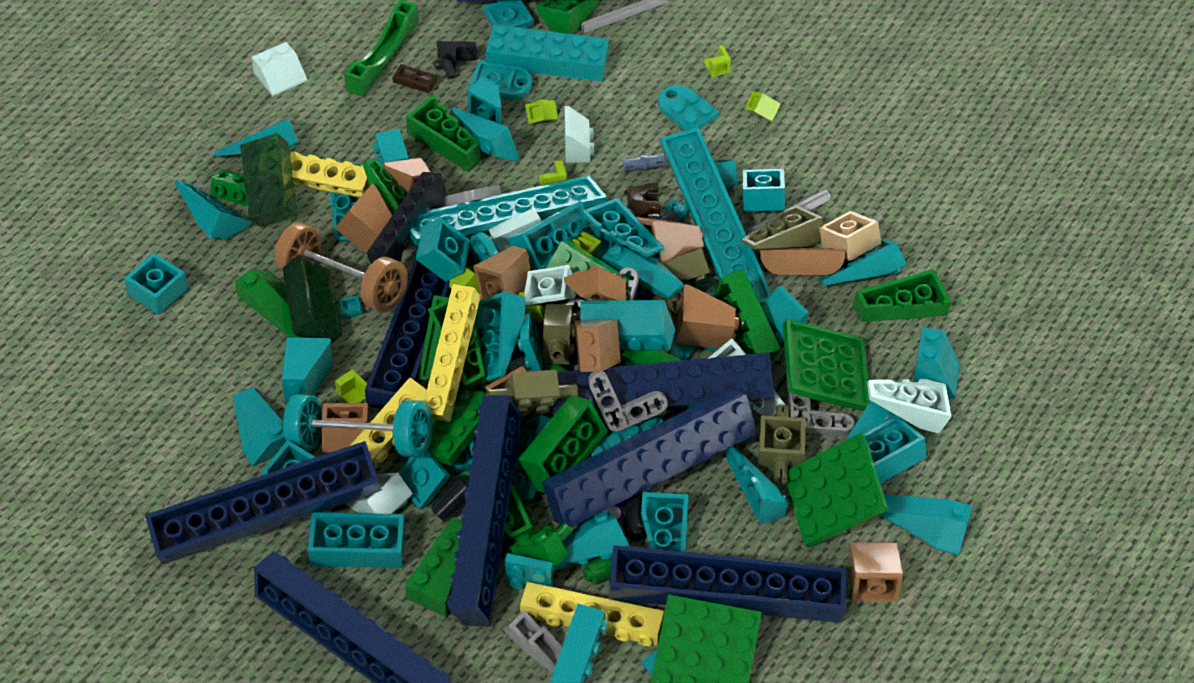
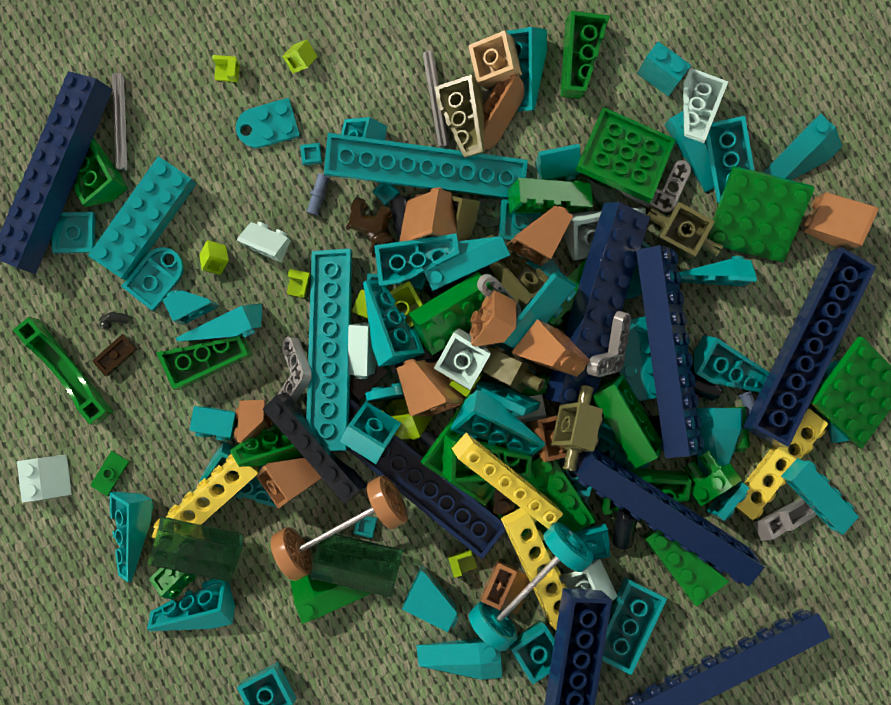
camera: 65 degrees left, 35 degrees up
(306, 113) = (109, 473): none -> green plate
(457, 50) = (96, 305): black slope -> none
(763, 190) = (407, 107): teal brick -> none

